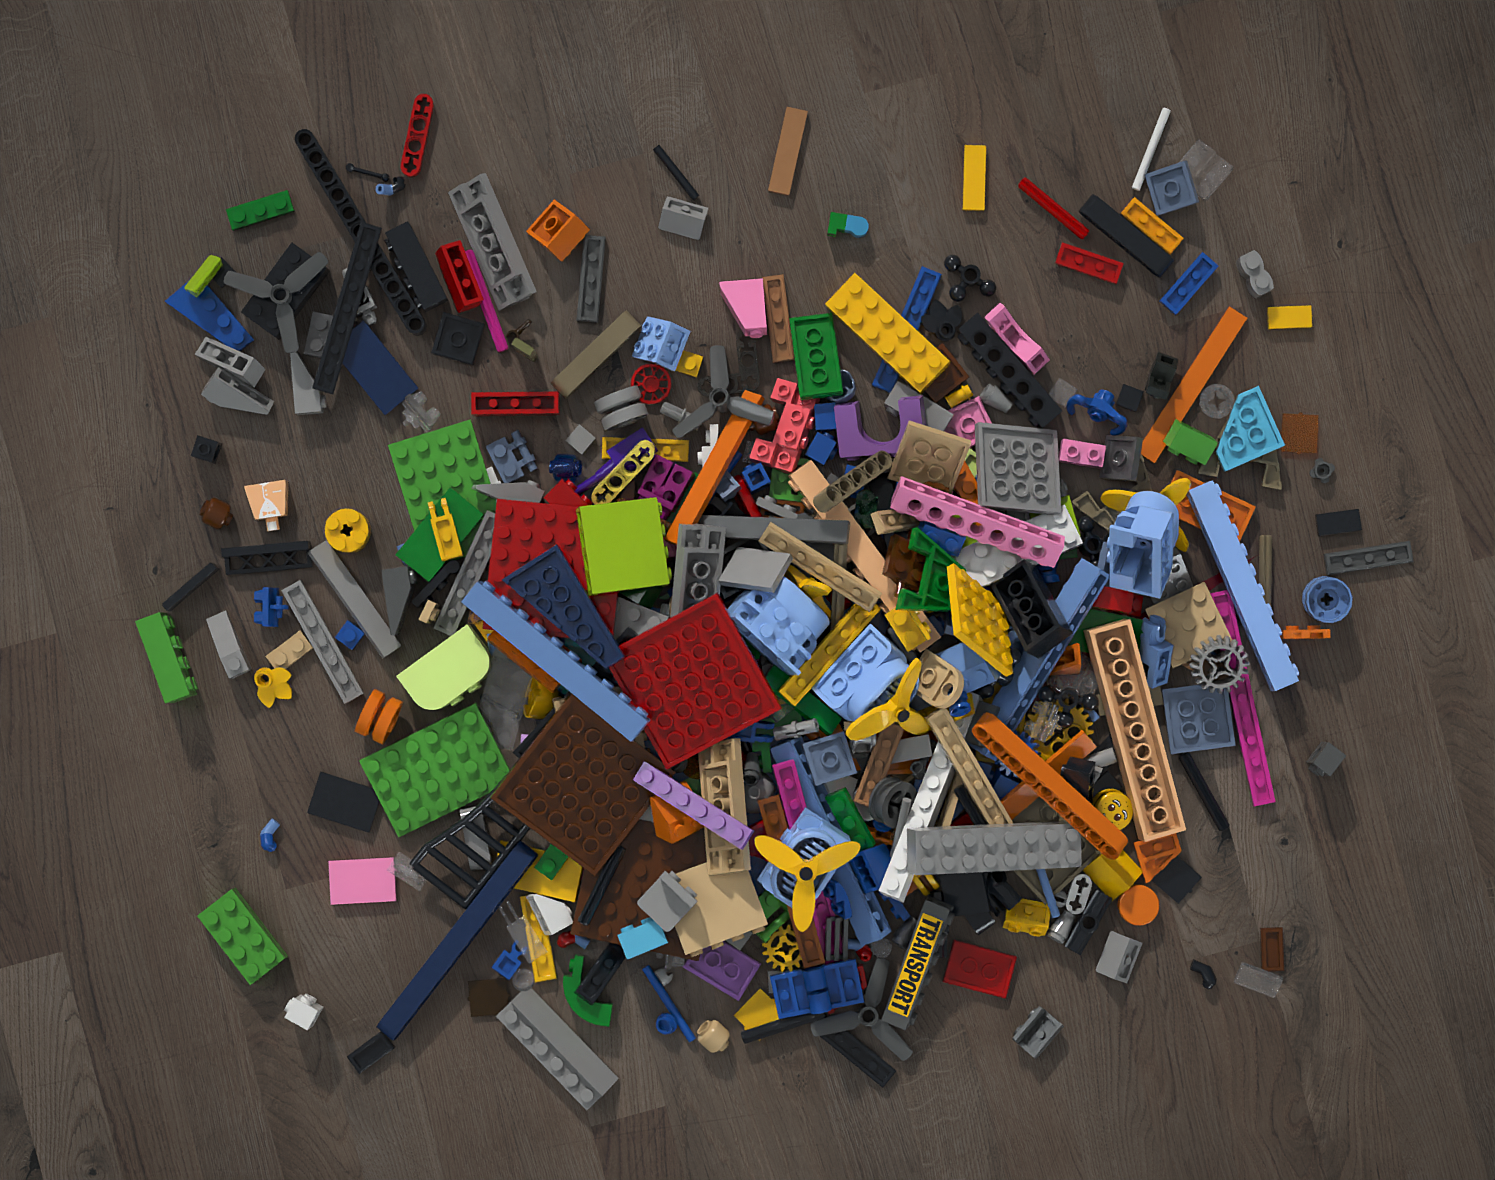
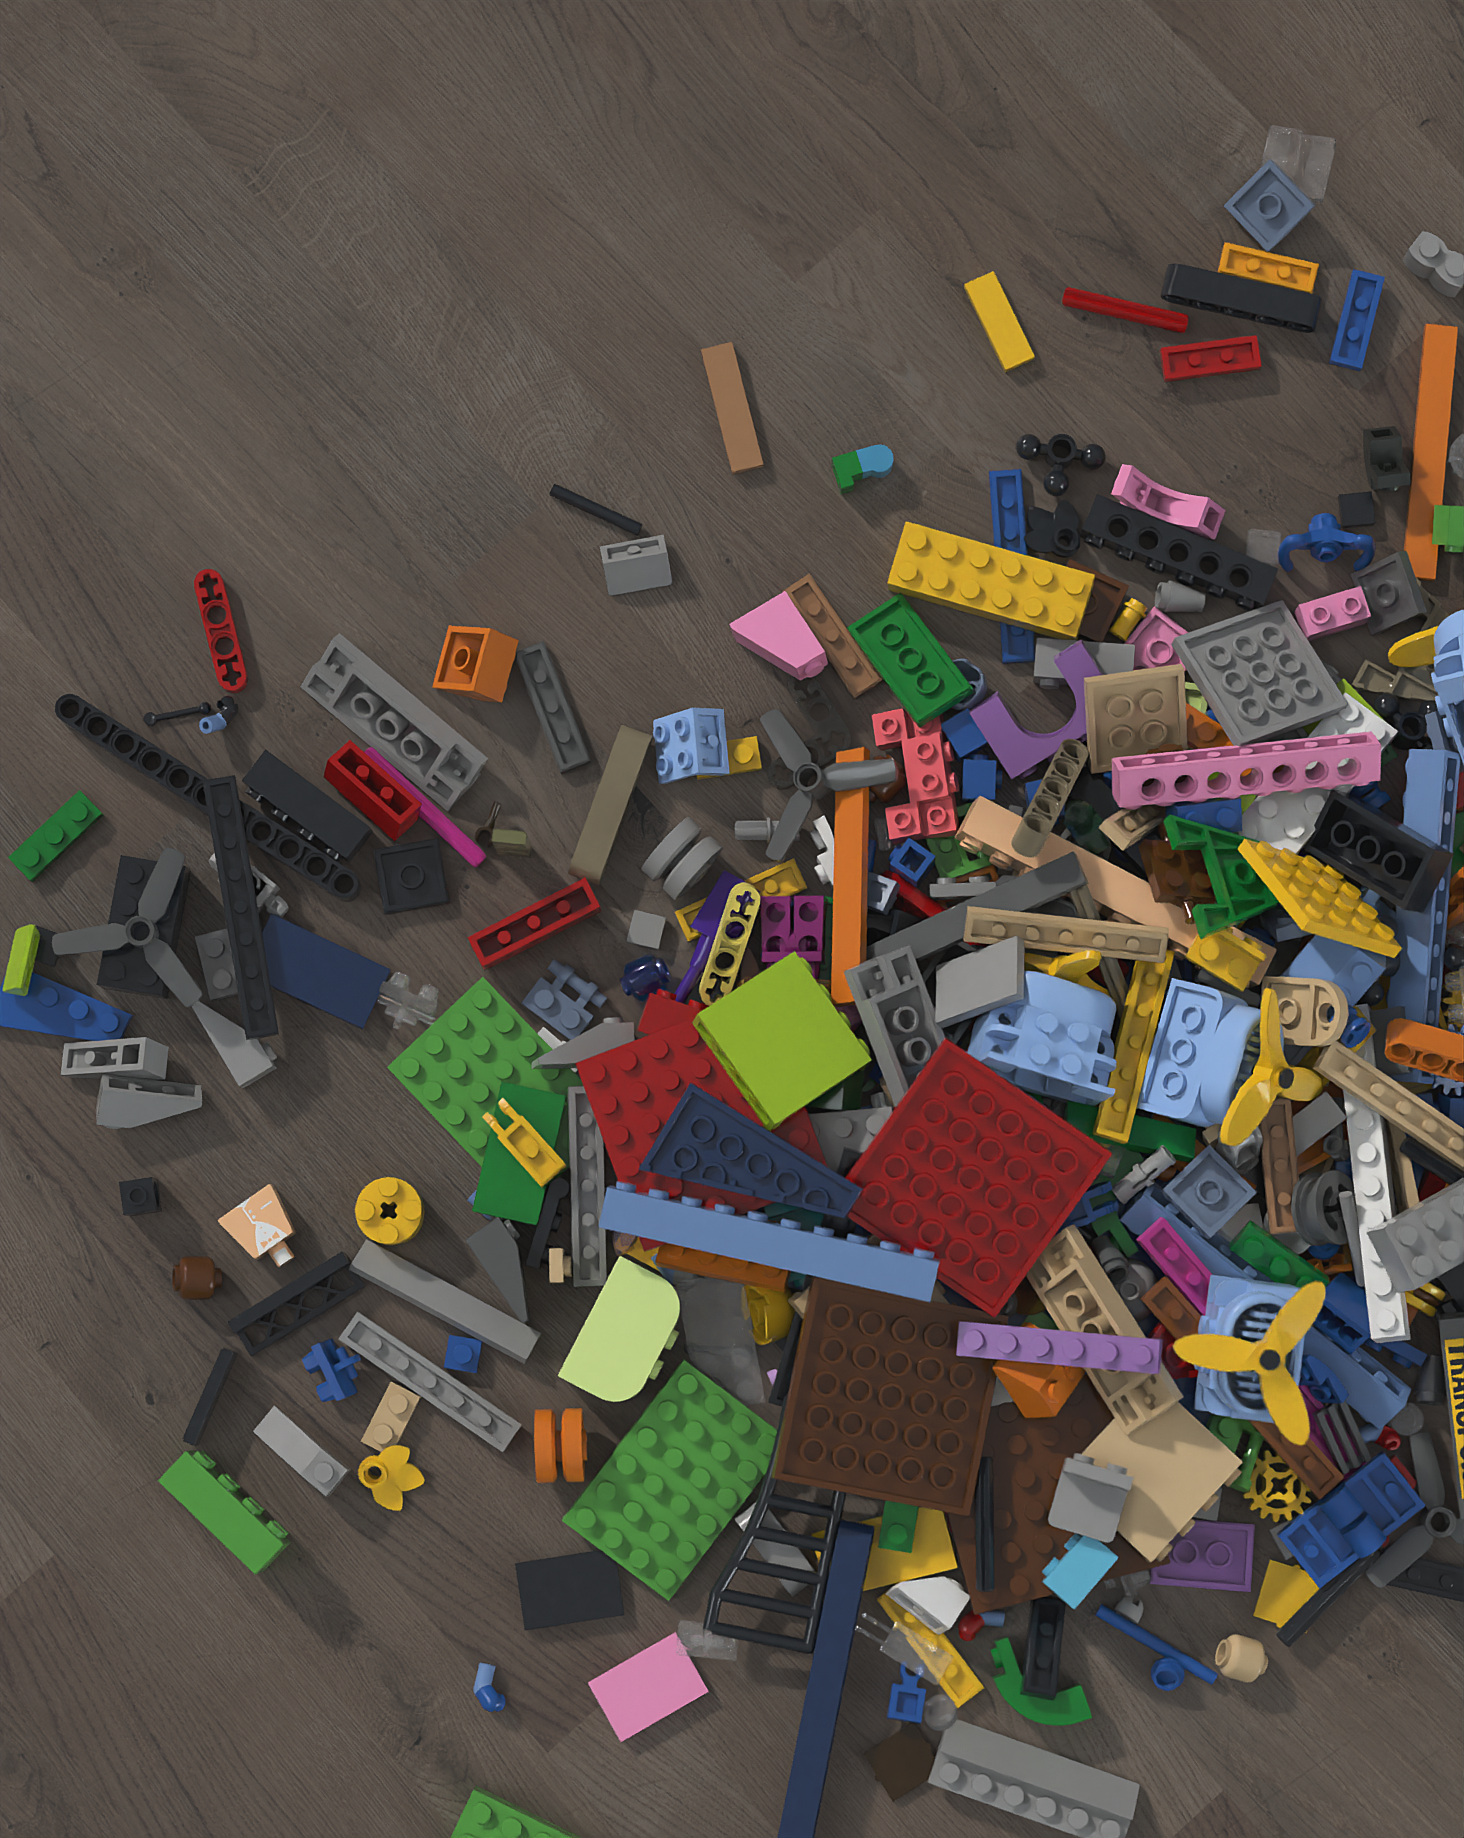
camera: 25 degrees left, 5 degrees down
(652, 383) = (704, 806): red wheel -> none
(1151, 149) = (1214, 169): white bar -> none

